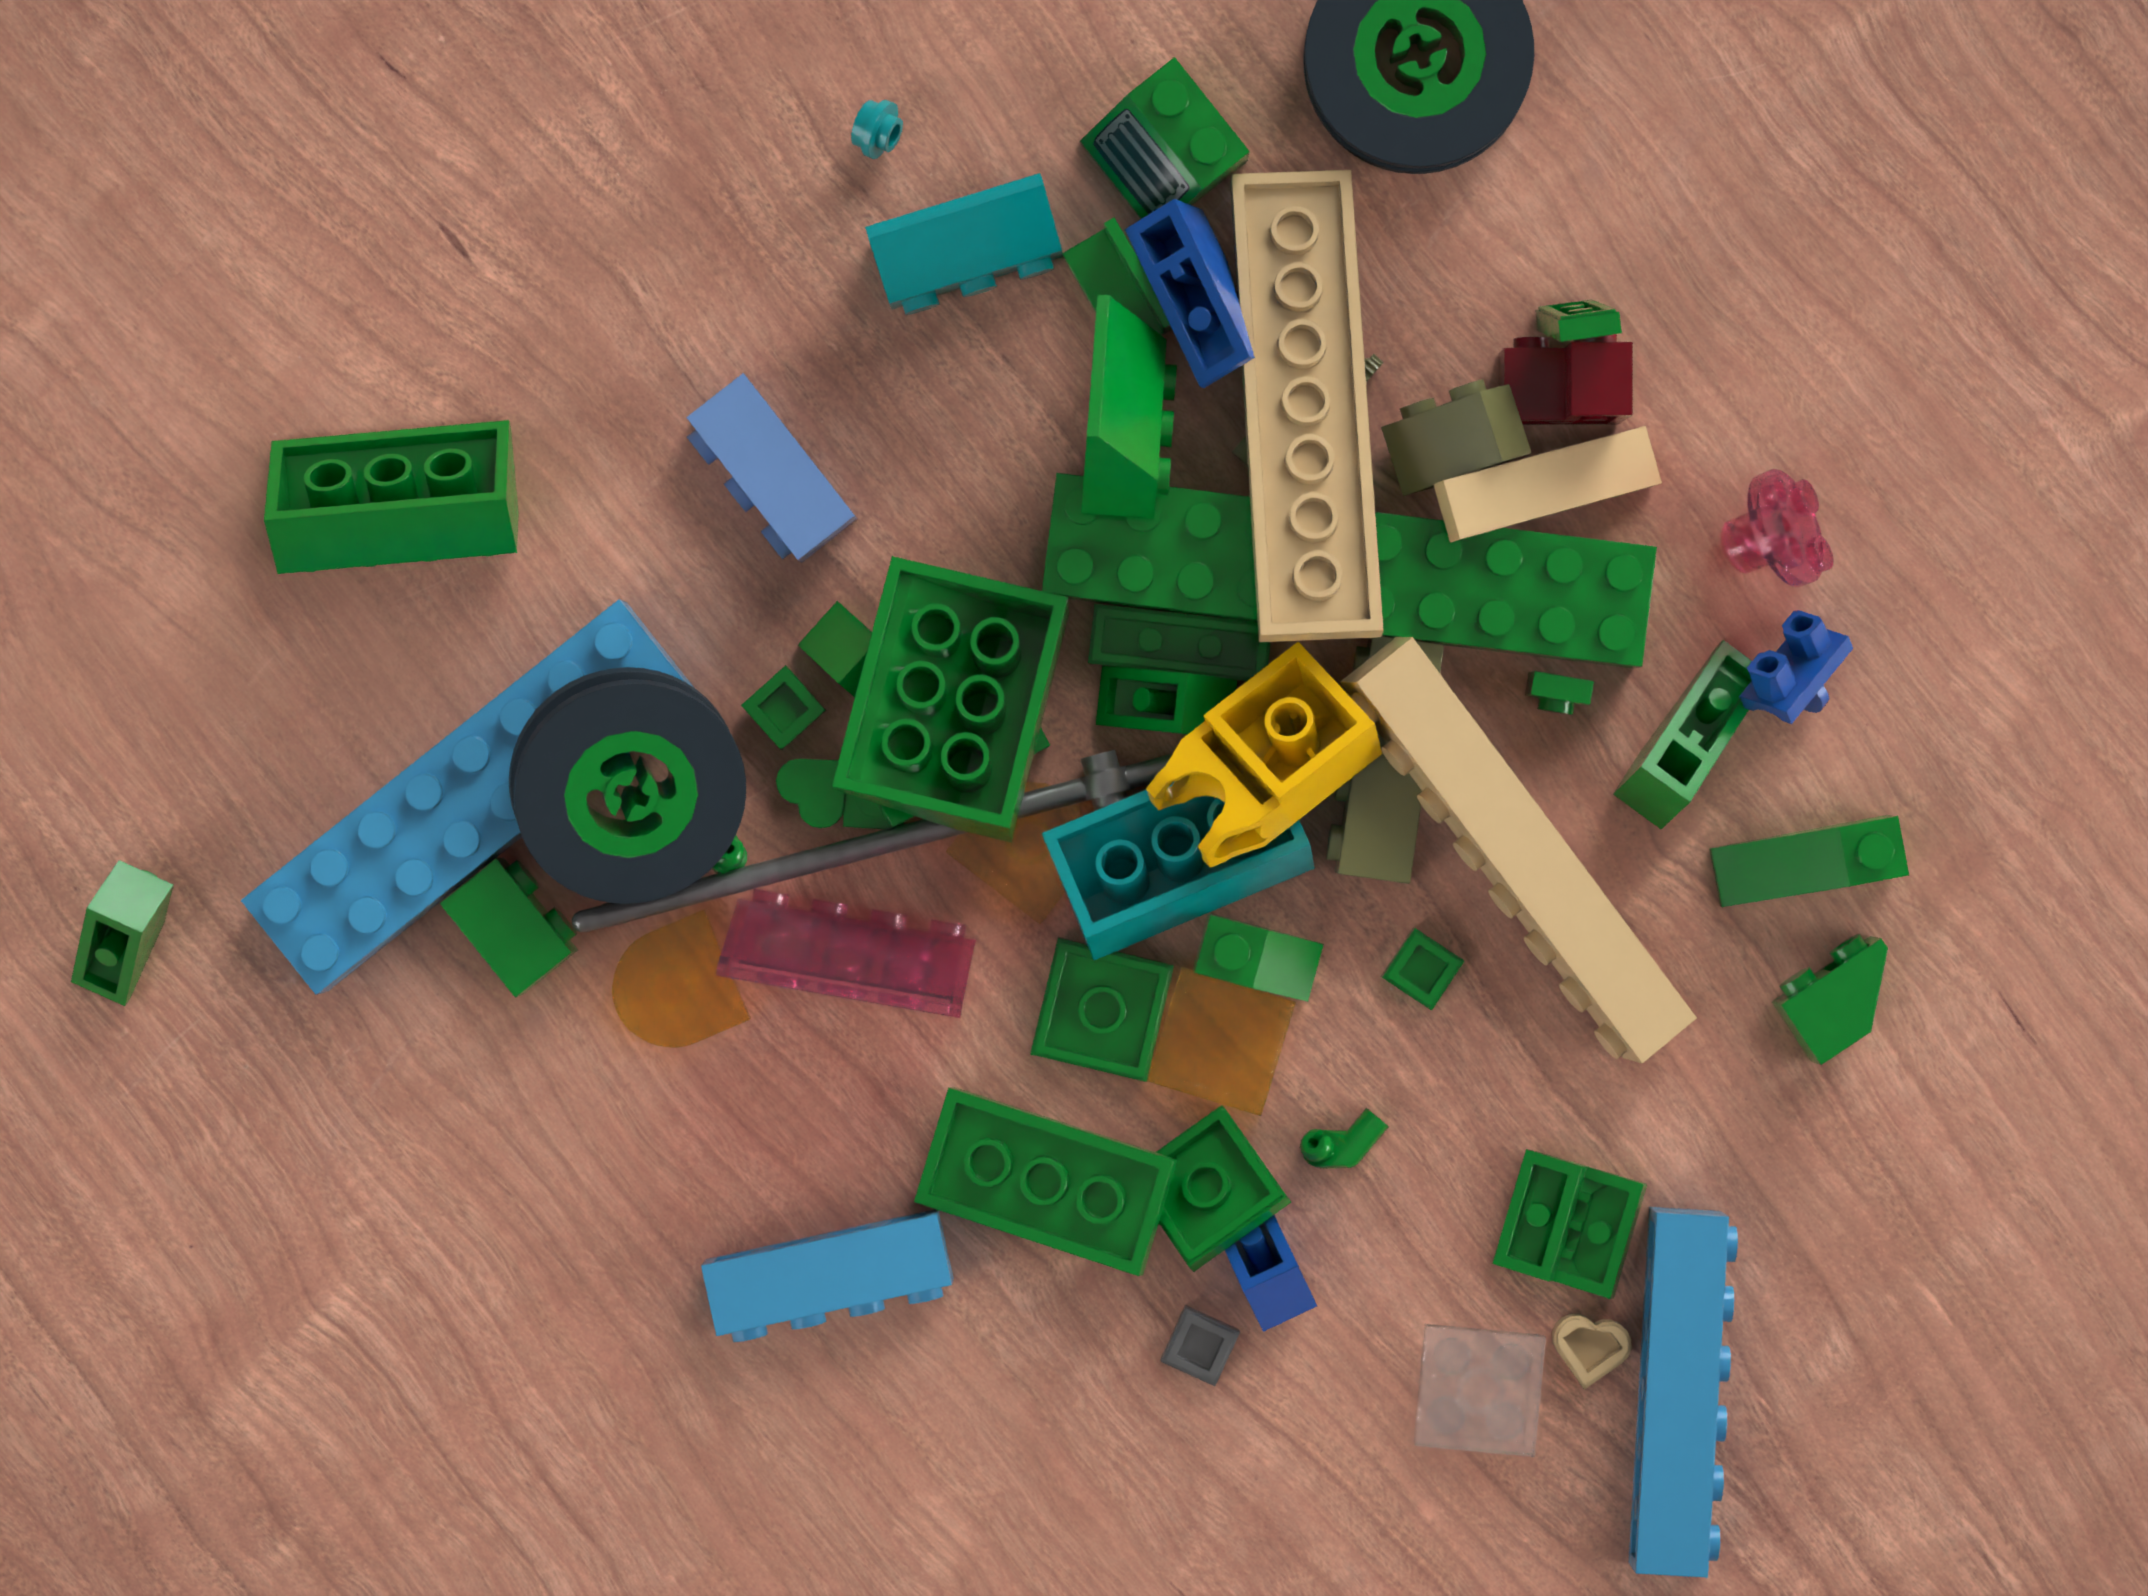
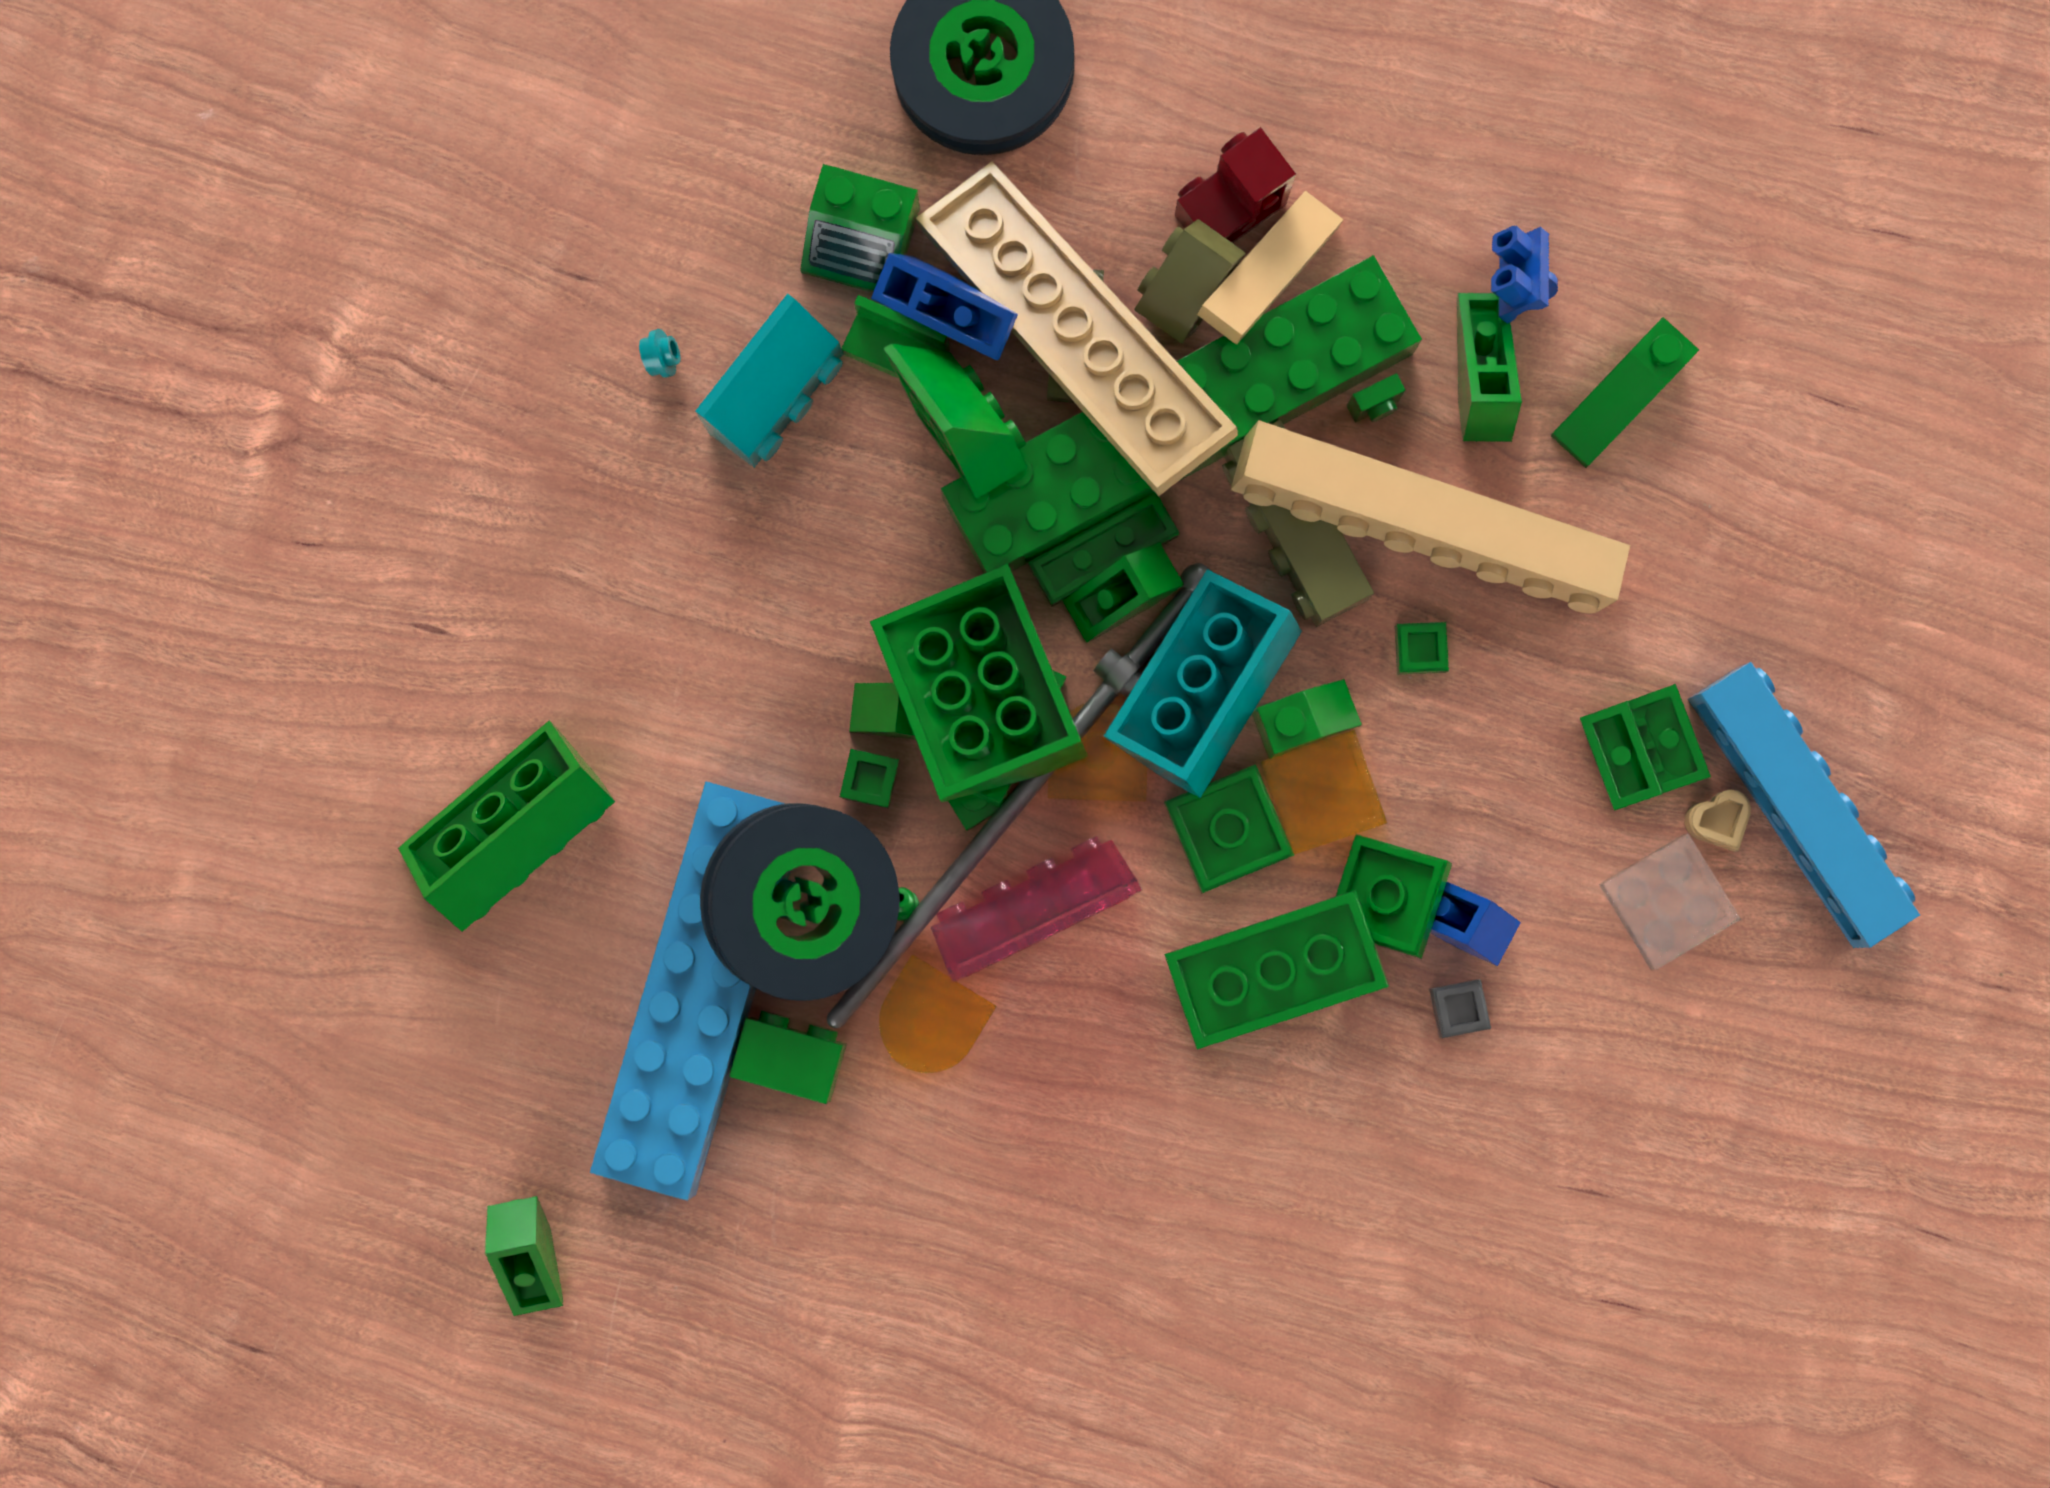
camera: 30 degrees left, 5 degrees down
(769, 470) = (747, 626): medium blue brick -> none
(810, 786) = (929, 819): green tile -> none
(826, 1274) = (1174, 1141): dark azure brick -> none
(1254, 763) = (1219, 568): yellow brick -> none
(1342, 1148) = (1458, 804): green arm -> none
(1578, 320) = (1213, 140): green tile -> none
(1778, 531) = (1442, 194): clear pink plate -> none
(1837, 1002) = (1712, 471): green slope -> none

